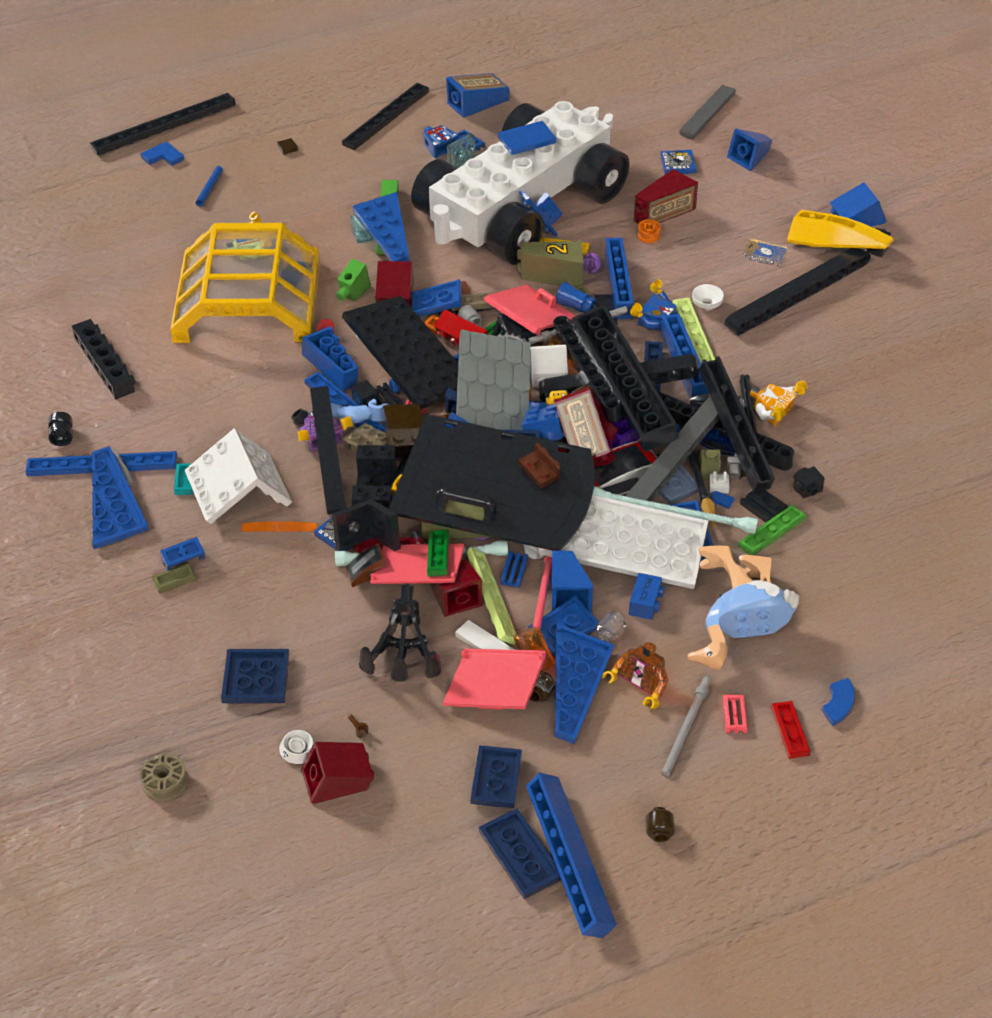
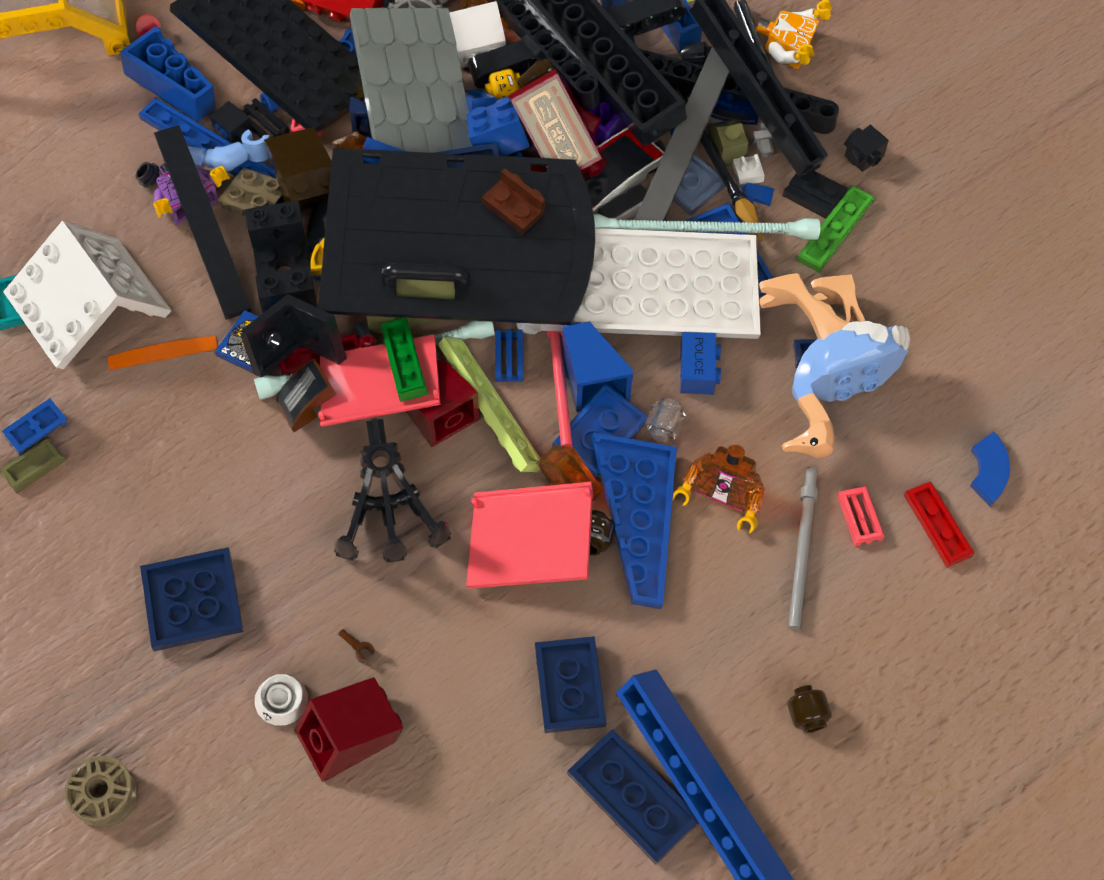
camera: 15 degrees left, 15 degrees up
(479, 638) = (492, 473): white tile -> none

